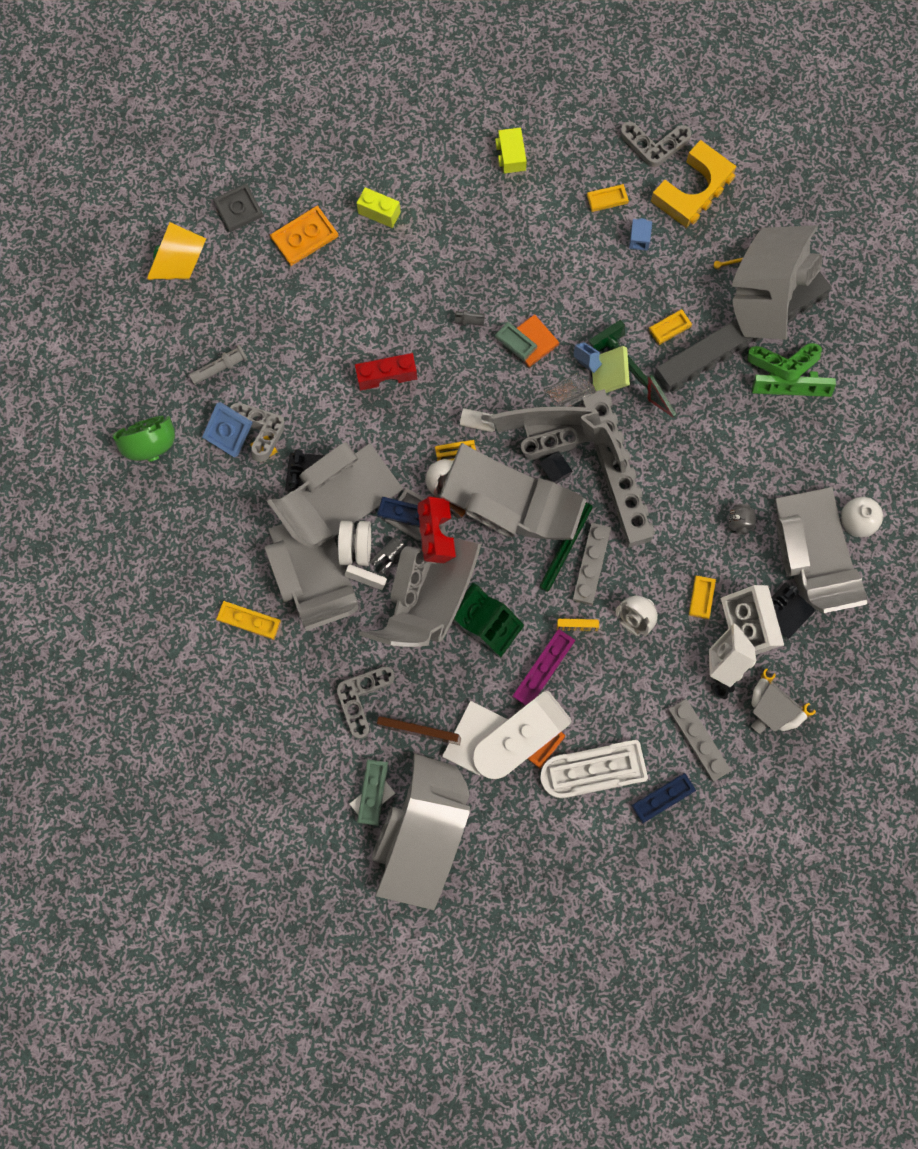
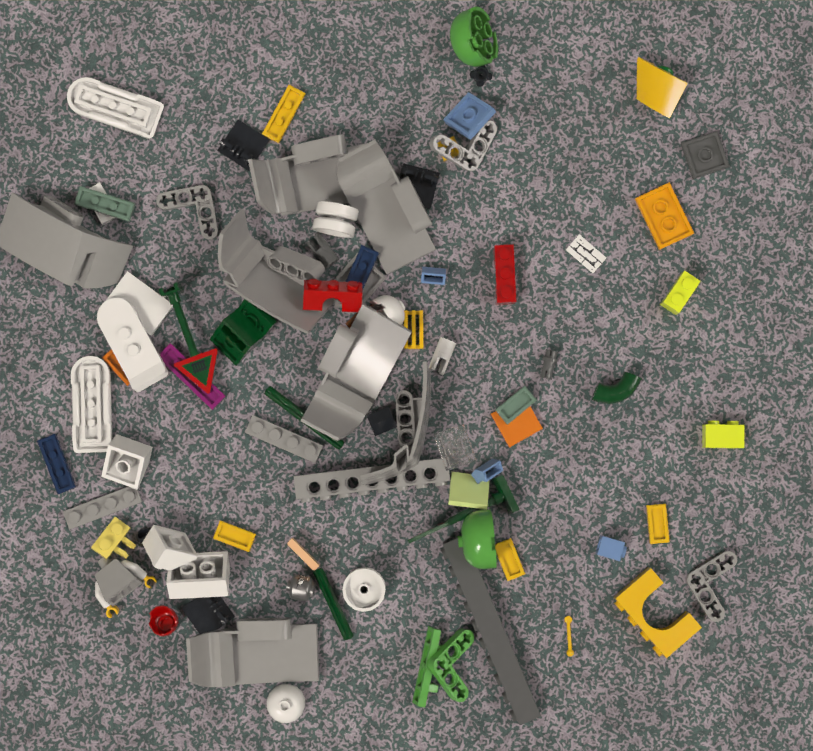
camera: 95 degrees right, 10 degrees up
(183, 422) = (480, 80): none -> black plate
(226, 361) = (542, 124): light grey pin -> none
(263, 801) = (115, 106): none -> white piece
(287, 656) = (242, 144): none -> black hinge
(352, 302) = (586, 253): none -> white sticker
(365, 577) = (303, 225): white tile -> none
(395, 450) = (434, 272): none -> medium blue piece
(418, 730) = (152, 253): reddish brown tile -> none
(486, 250) = (617, 392): none -> dark green cylinder
(532, 659) = (198, 367): none -> dark green piece
(578, 624) = (226, 414): yellow tile -> none
(637, 614) = (225, 472): white cylinder -> none
(647, 720) = (126, 461): none -> white slope
(658, 347) = (478, 539): none -> bright green cylinder
(707, 522) = (303, 554): none -> light nougat tile
(731, 723) = (111, 538): none -> light yellow hinge
(740, 451) = (364, 577): none -> white wheel
(750, 487) = (333, 604): none -> dark green axle
(768, 276) = (540, 665): light grey beam -> none
(806, 652) = (163, 620): none -> red hair

